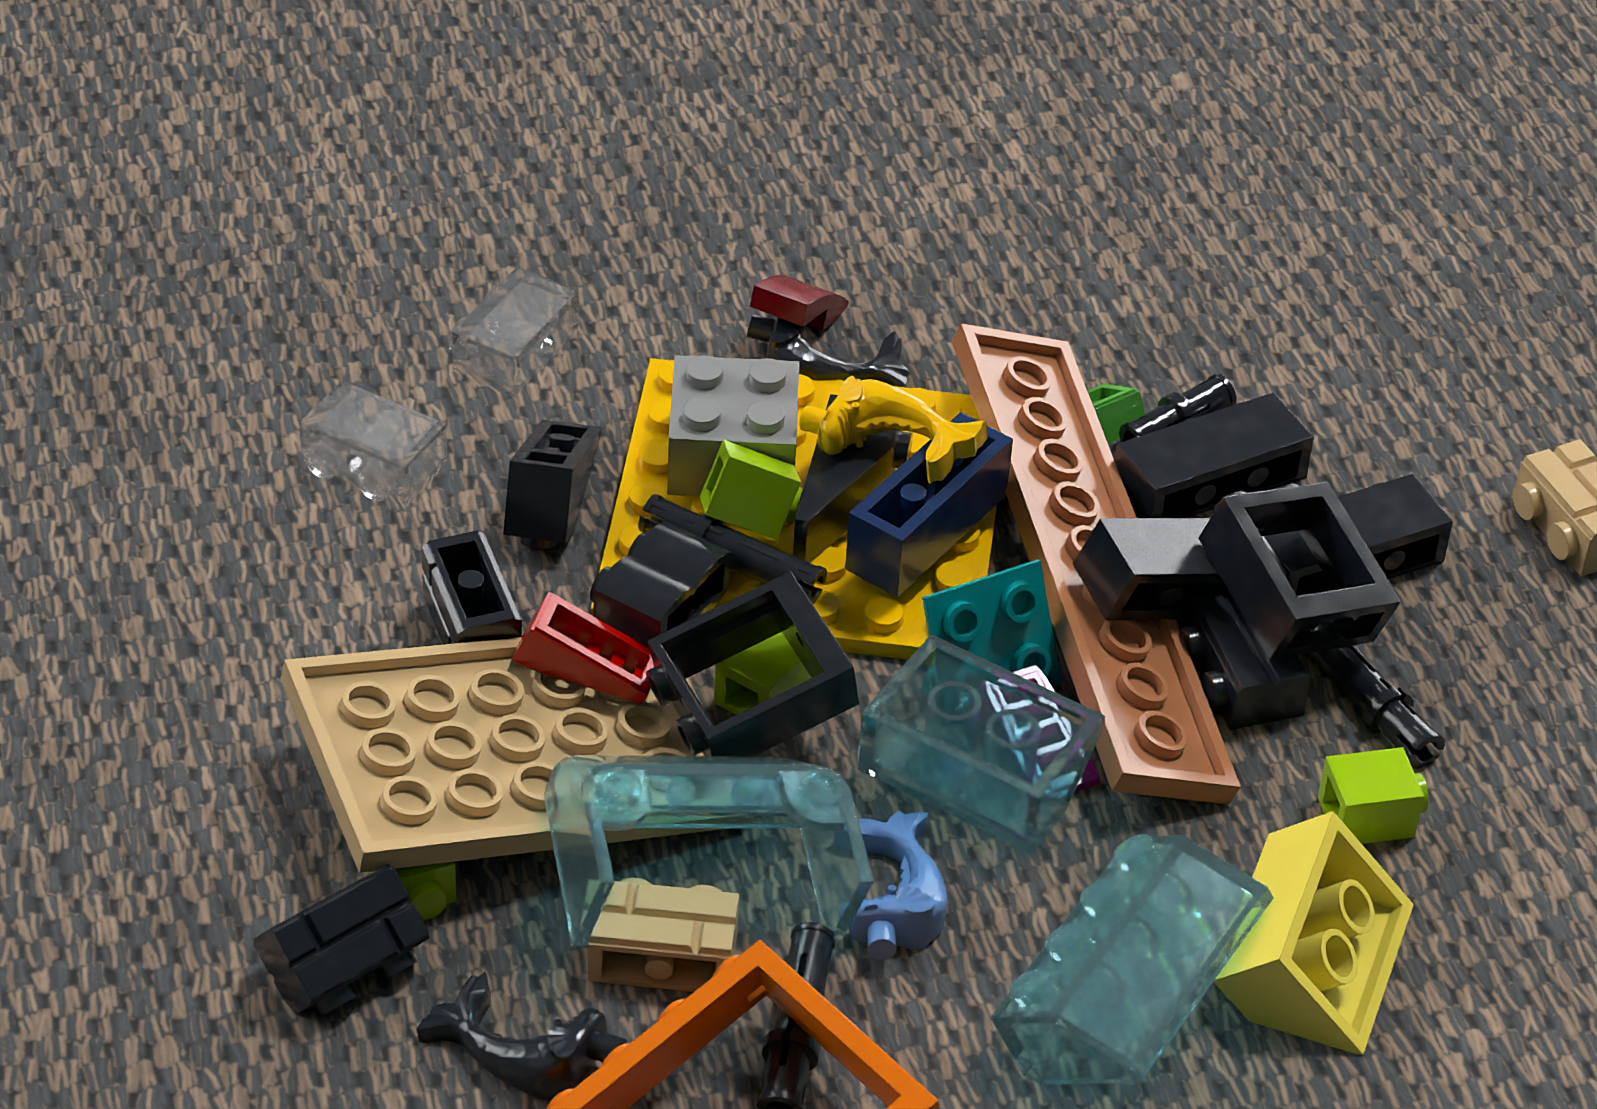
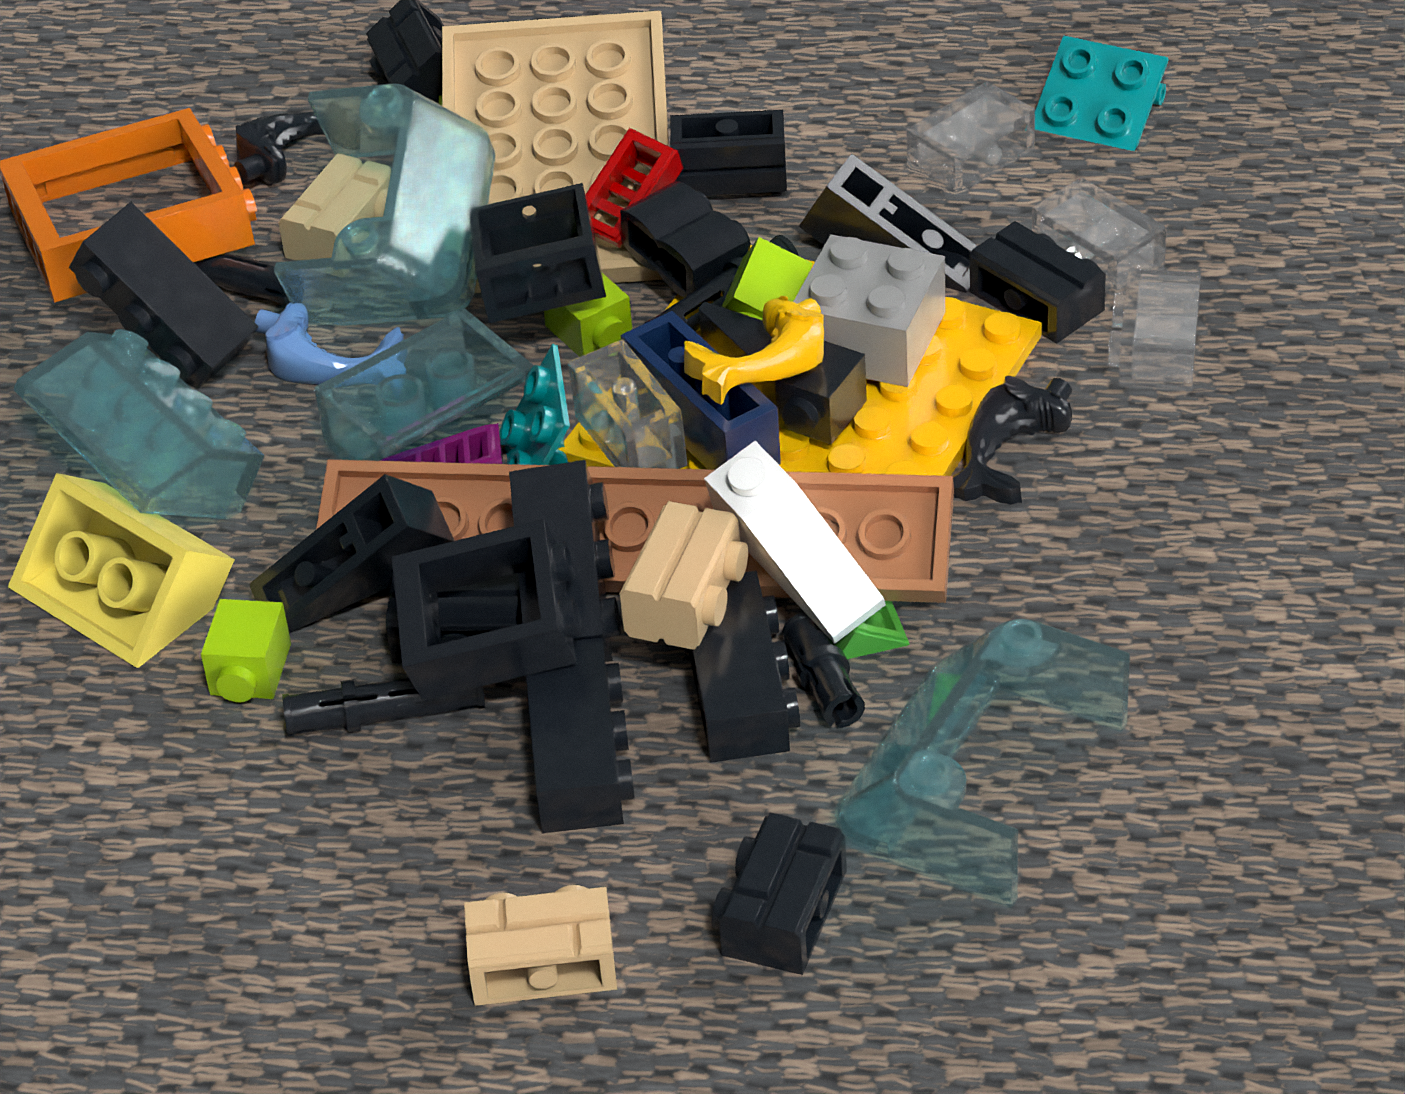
camera: 115 degrees right, 0 degrees up
(257, 370) = (1100, 93): none -> teal hinge
(596, 362) = (1037, 280): none -> black brick
(644, 275) = (1157, 330): none -> clear brick
(797, 301) = (1088, 424): dark red slope -> none
(939, 991) = (162, 295): none -> black brick
(973, 538) = (627, 409): none -> clear brick
(1082, 416) = (793, 542): none -> white slope
(1178, 457) = (683, 575): none -> tan brick
(1239, 316) = (911, 788): none -> clear light blue windscreen
(1239, 719) = (353, 551): none -> black slope
(1444, 383) = (781, 893): none -> black brick

